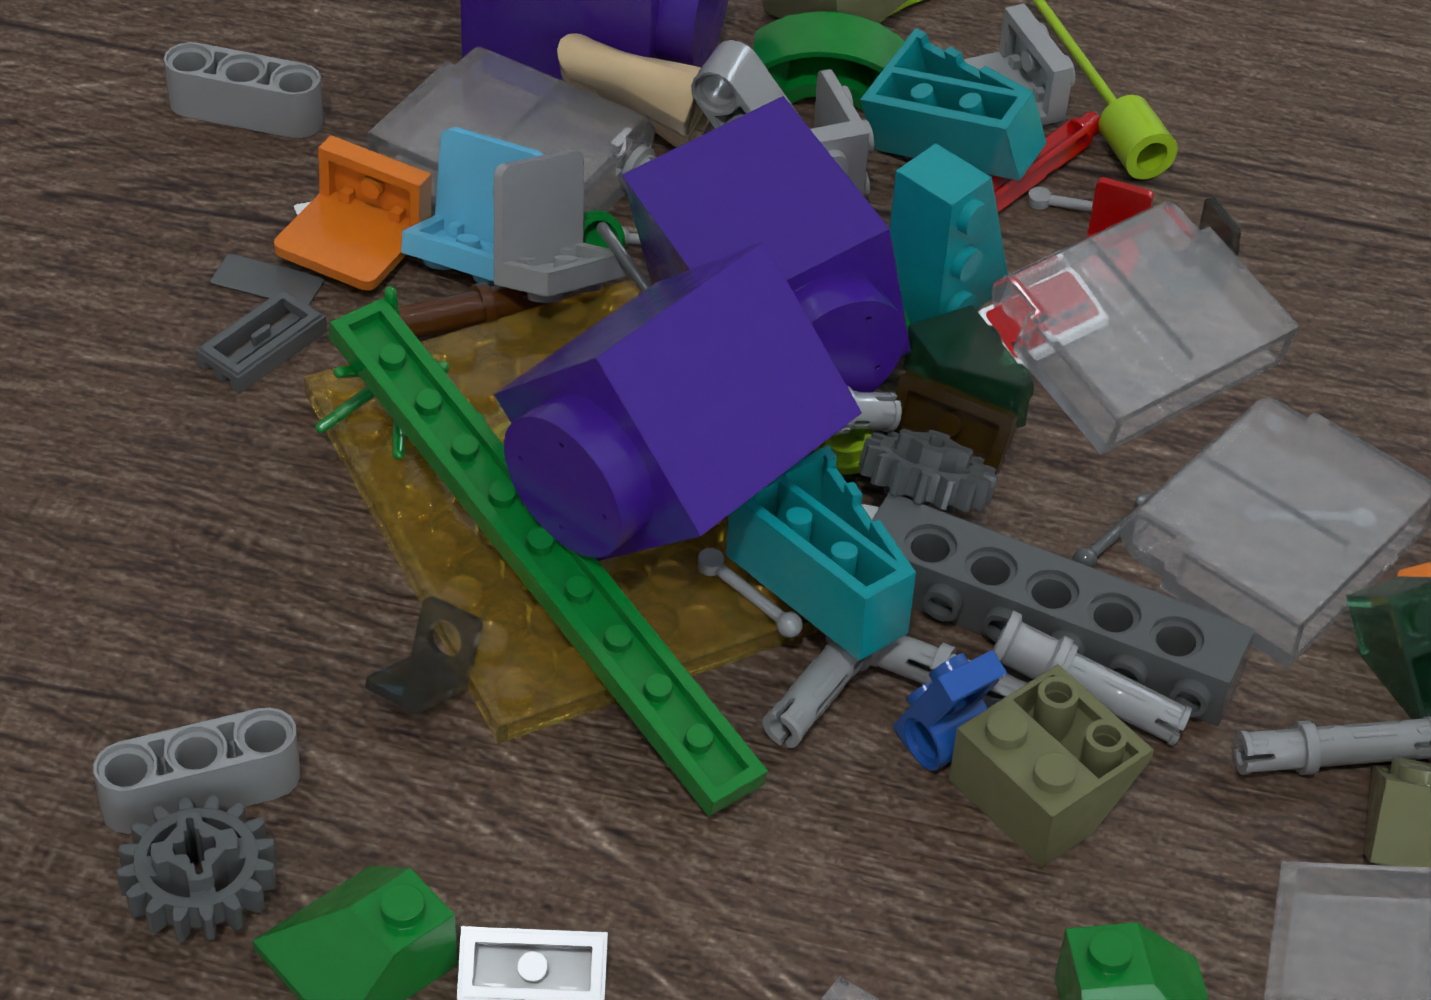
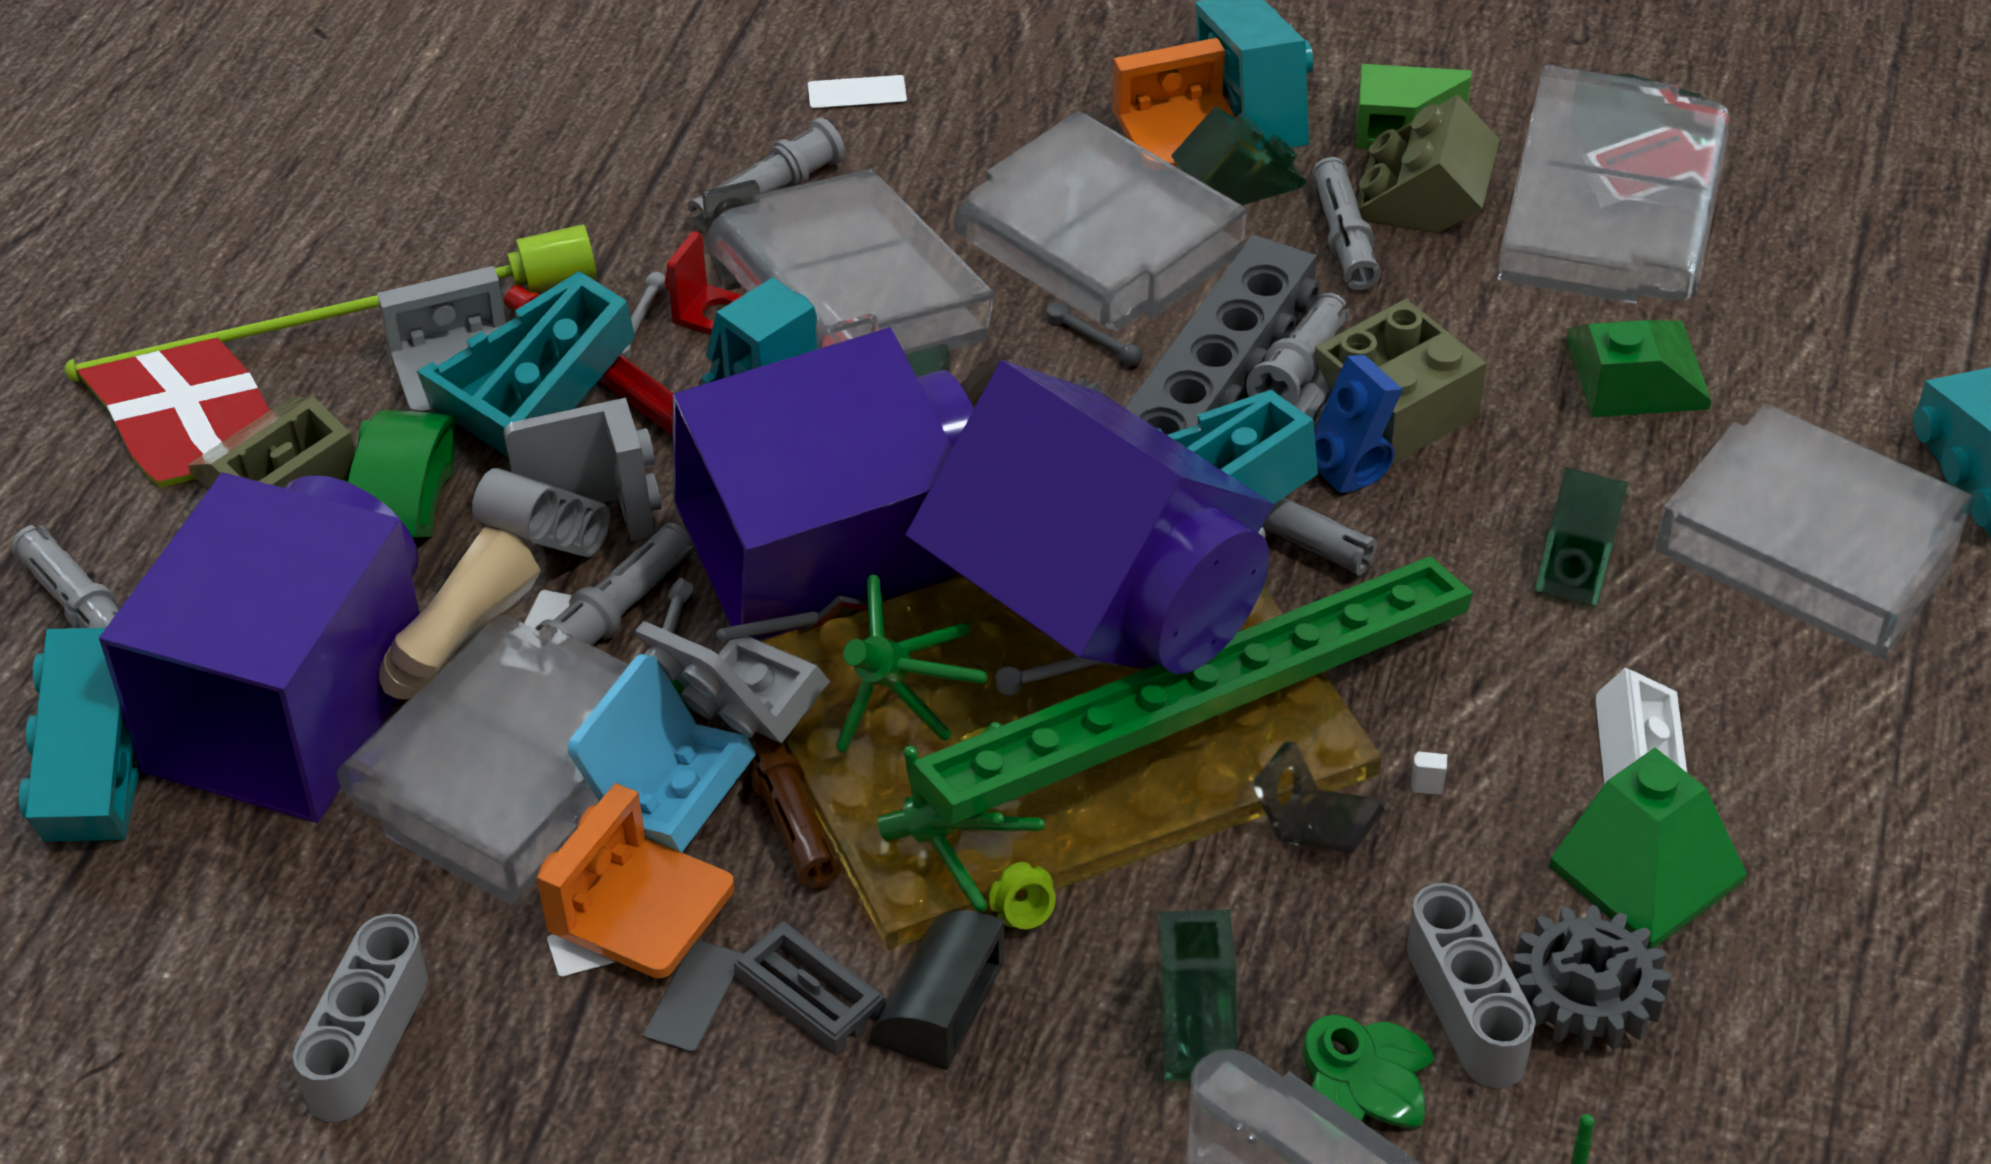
camera: 85 degrees left, 0 degrees up
(109, 699) = (1377, 1074): none -> green plate
(200, 562) = (1195, 988): none -> clear green slope
(239, 414) = (942, 988): none -> pearl dark grey brick
(334, 459) = (1033, 906): none -> lime plate
(480, 768) = (1429, 773): none -> white piece
(537, 301) = (888, 664): none -> green plant
(827, 921) = (1583, 536): none -> clear green slope
(1324, 288) = (787, 163): none -> light grey pin

